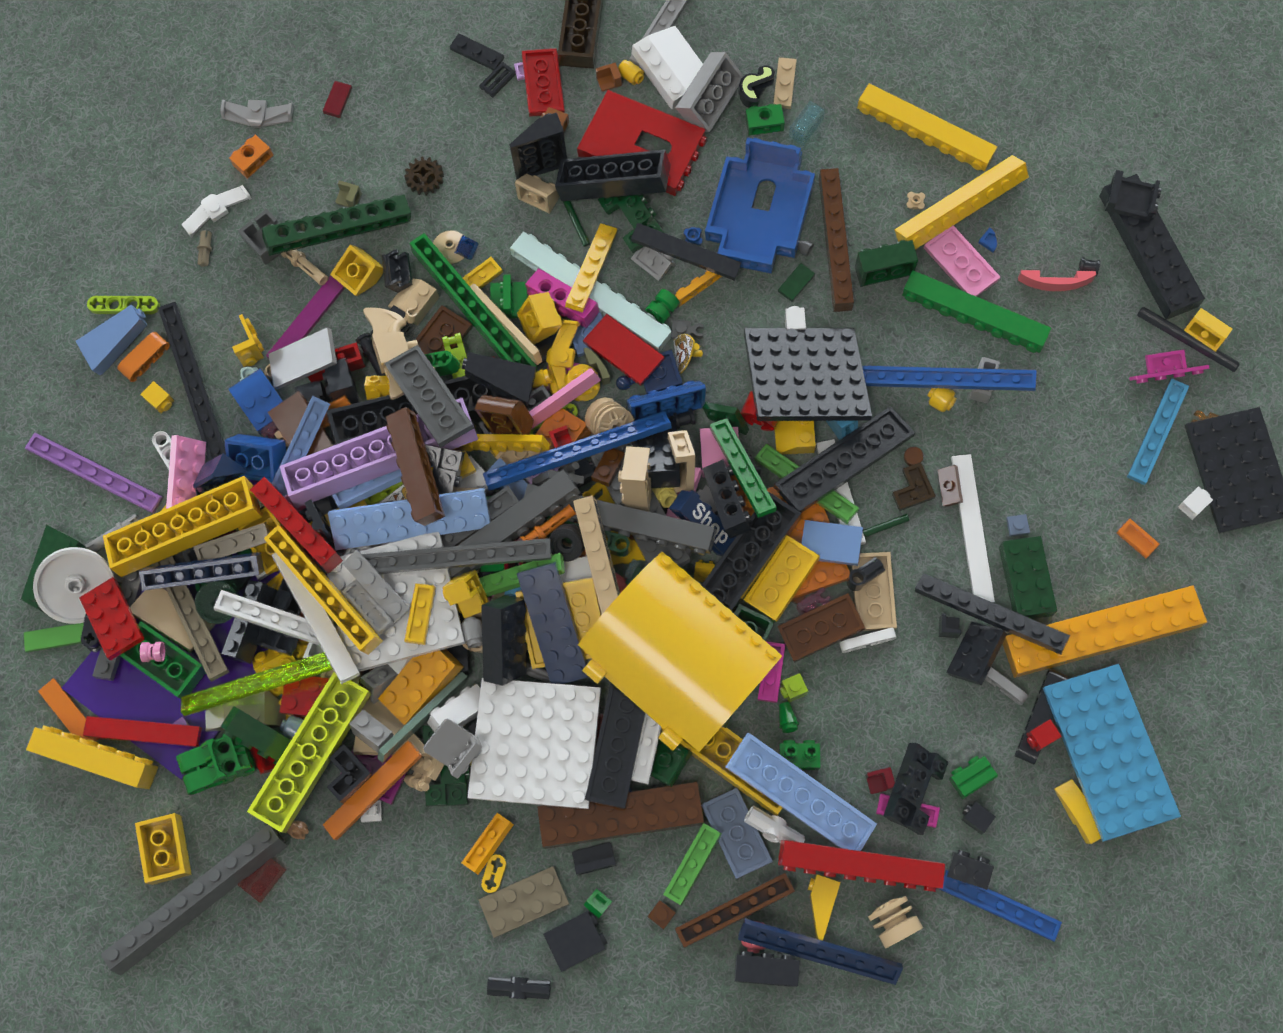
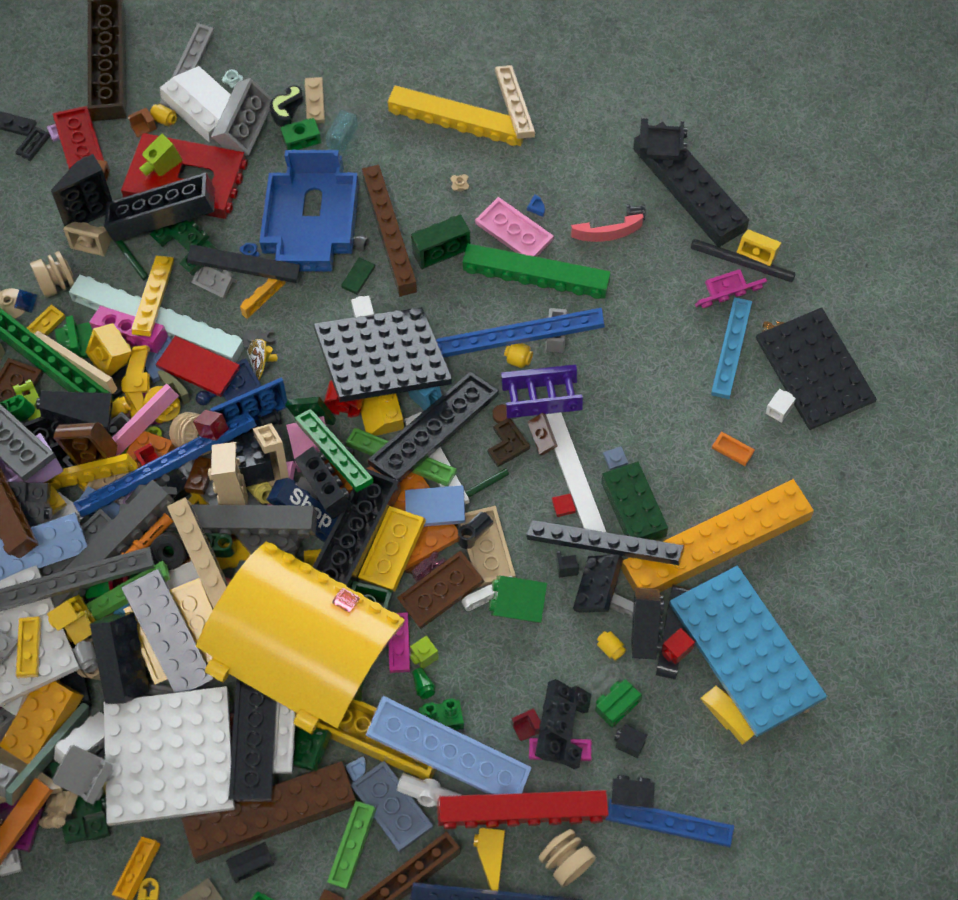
camera: 15 degrees left, 10 degrees down
(497, 226) = (52, 274): none -> tan wheel
(621, 121) = (160, 156): none -> lime torso
(627, 420) = (210, 425): none -> dark red brick
(662, 306) = (230, 318): green wheel -> none
(706, 39) = (232, 74): none -> light aqua plate
(709, 789) = (356, 768): none -> light blue tile
(729, 628) = (346, 600): none -> clear pink tile
(895, 654) = (518, 599): none -> green brick
(957, 563) = (563, 505): none -> red tile
(958, 426) = (540, 378): none -> dark purple fence
(963, 202) = (505, 175): yellow brick -> none
(977, 717) = (611, 645): none -> yellow brick
(988, 123) = (514, 102): none -> tan tile
(1017, 707) = (647, 623): none -> black brick

